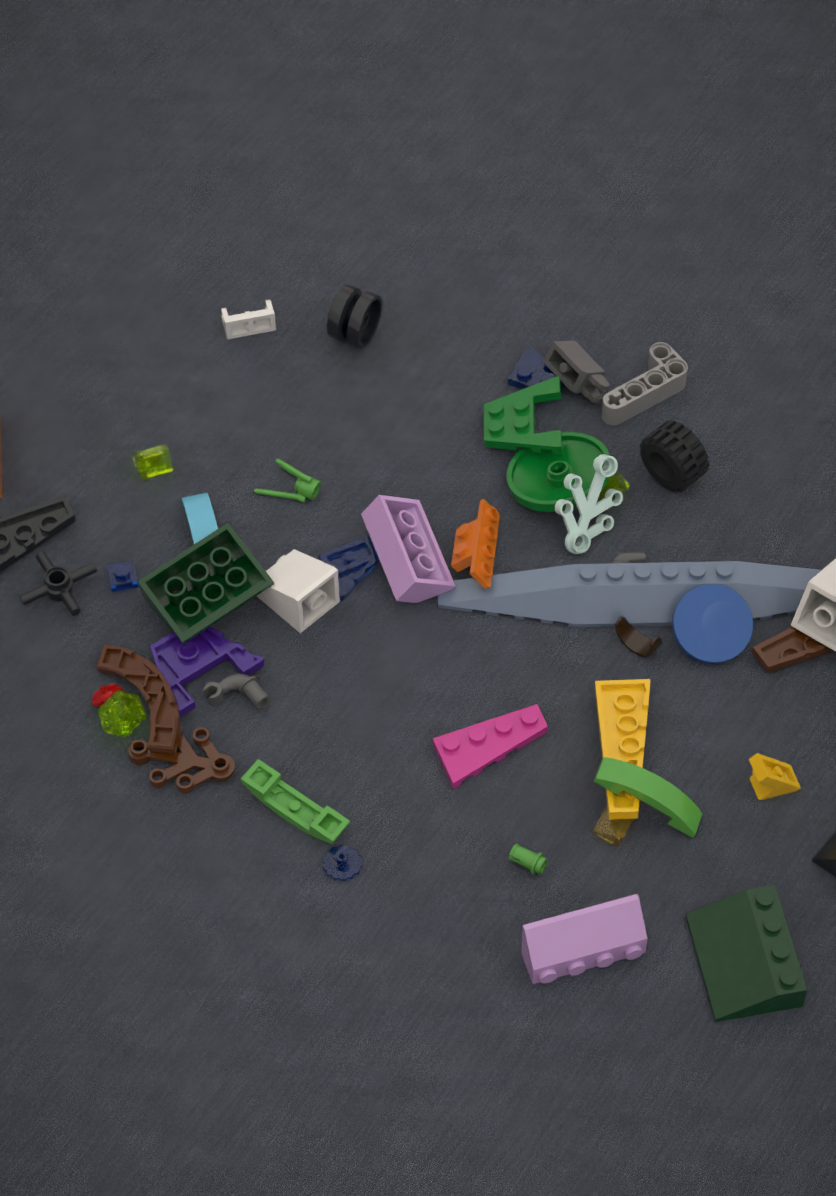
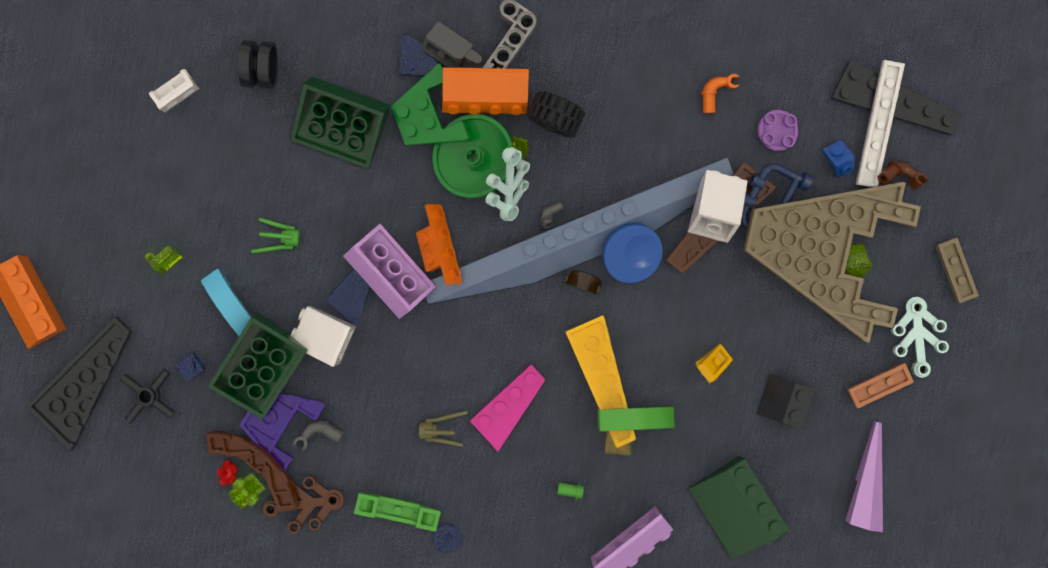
camera: 20 degrees left, 35 degrees up
(378, 731) = (429, 430): none -> olive plant
(418, 399) = (339, 122): none -> dark green slope
(600, 409) = (485, 91): none -> orange slope

